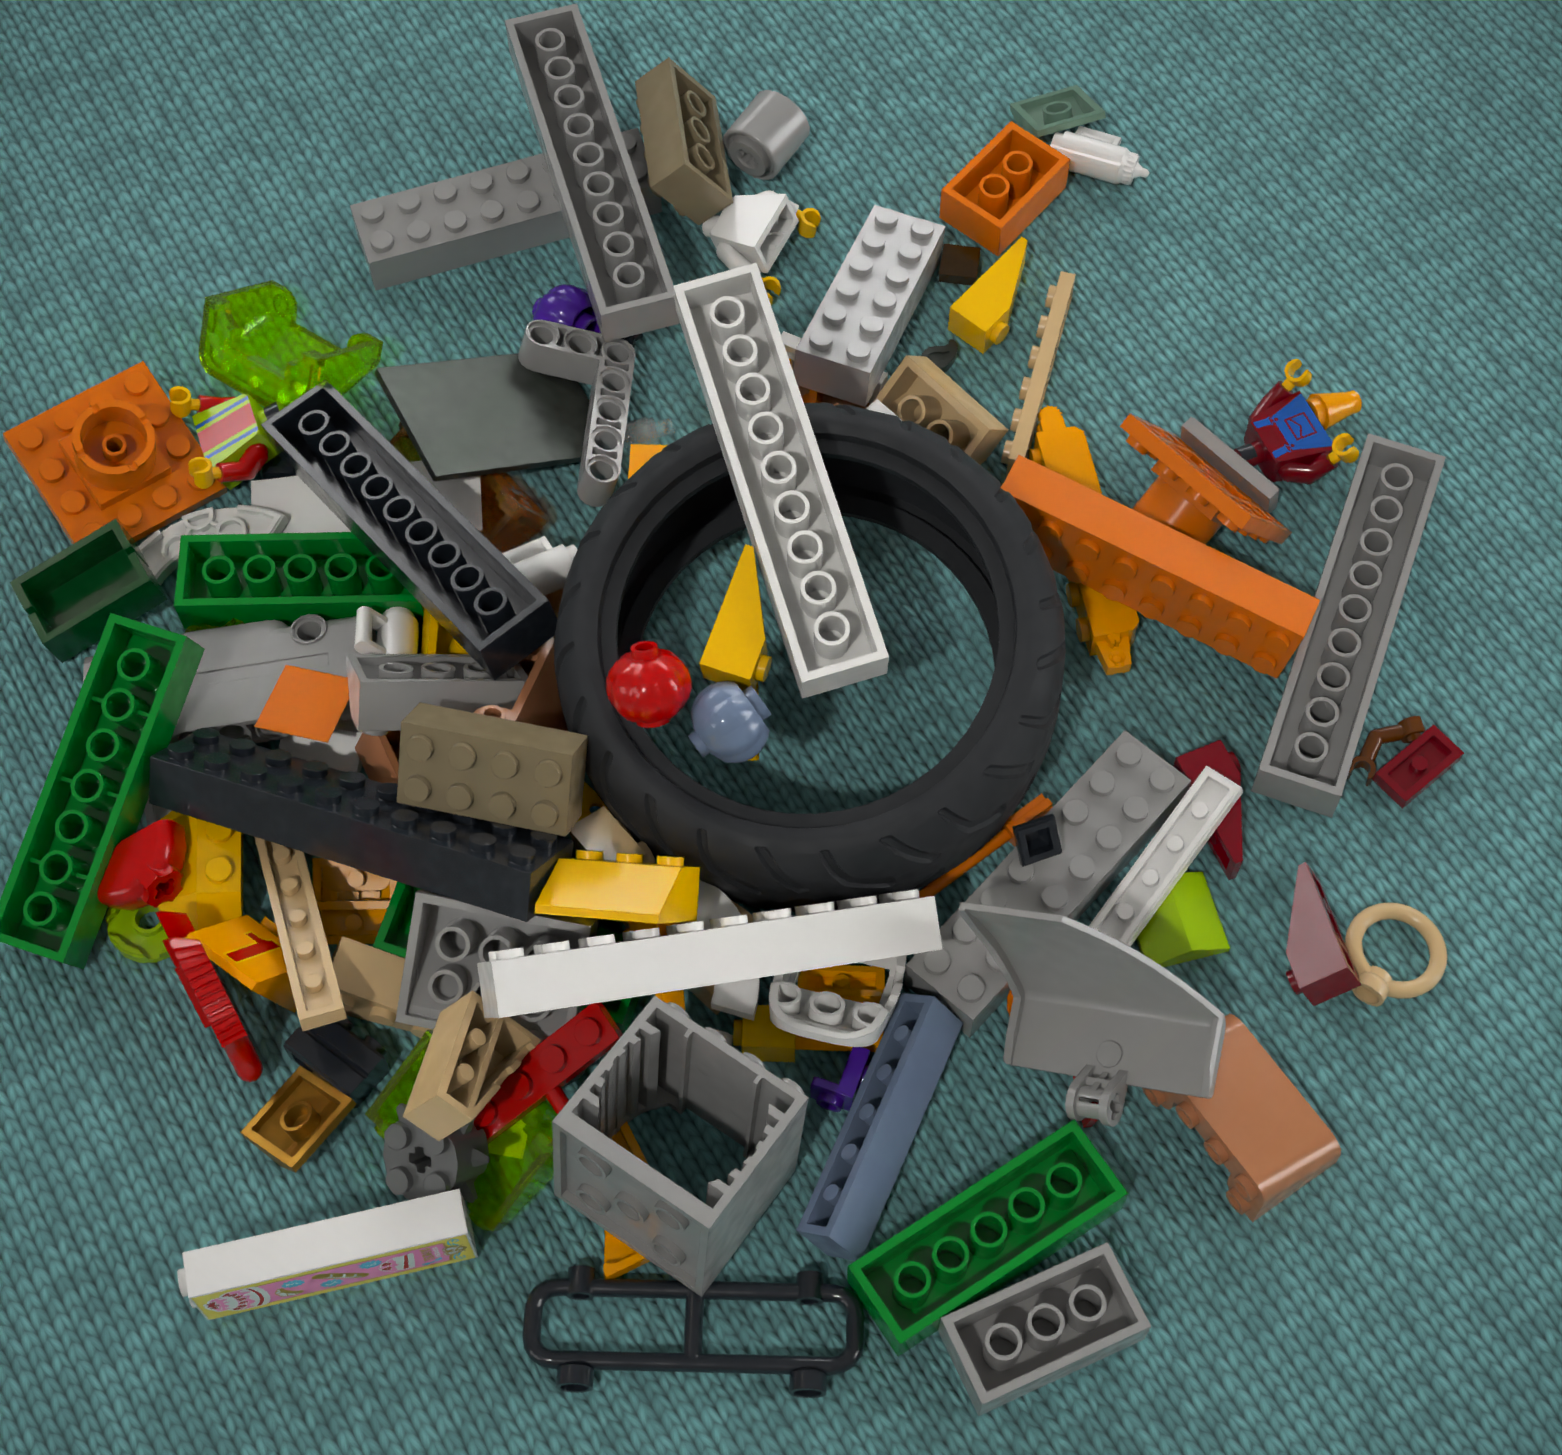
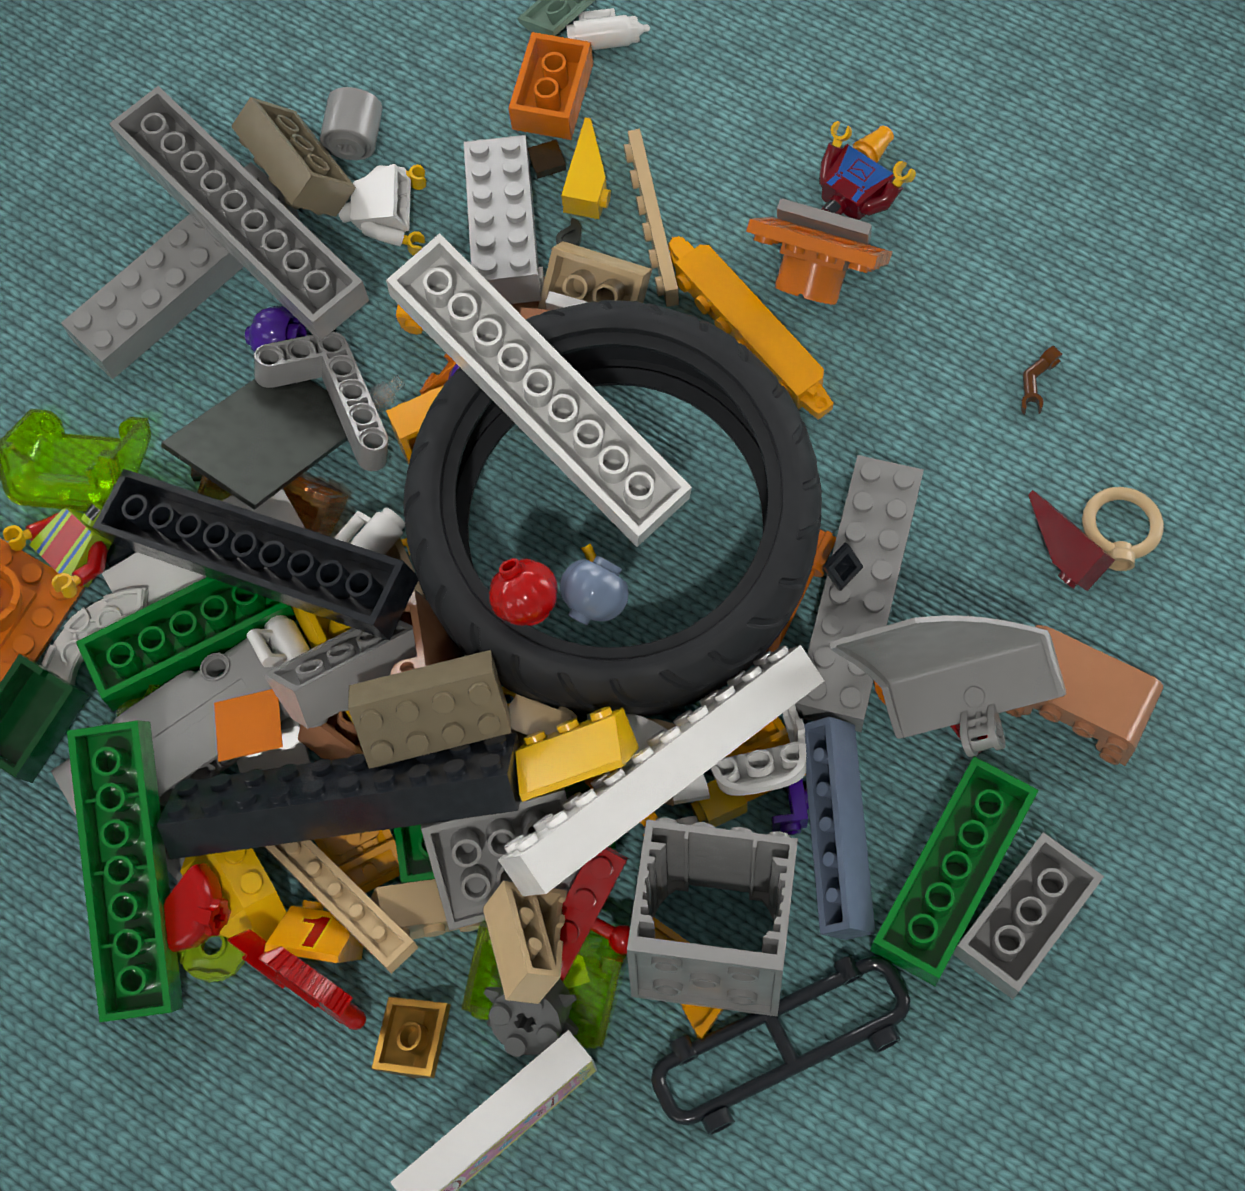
camera: 20 degrees left, 5 degrees up
(340, 1058) = (418, 978): black brick -> none
(738, 638) = (567, 518): yellow slope -> none
(1162, 570) = (829, 324): orange brick -> none
(1167, 856) = (934, 536): white tile -> none
(1184, 925) = (959, 575): lime slope -> none
(1227, 838) = (946, 476): dark red slope -> none
(1351, 628) = (971, 302): light grey brick -> none
(1418, 766) = (1069, 382): dark red plate -> none

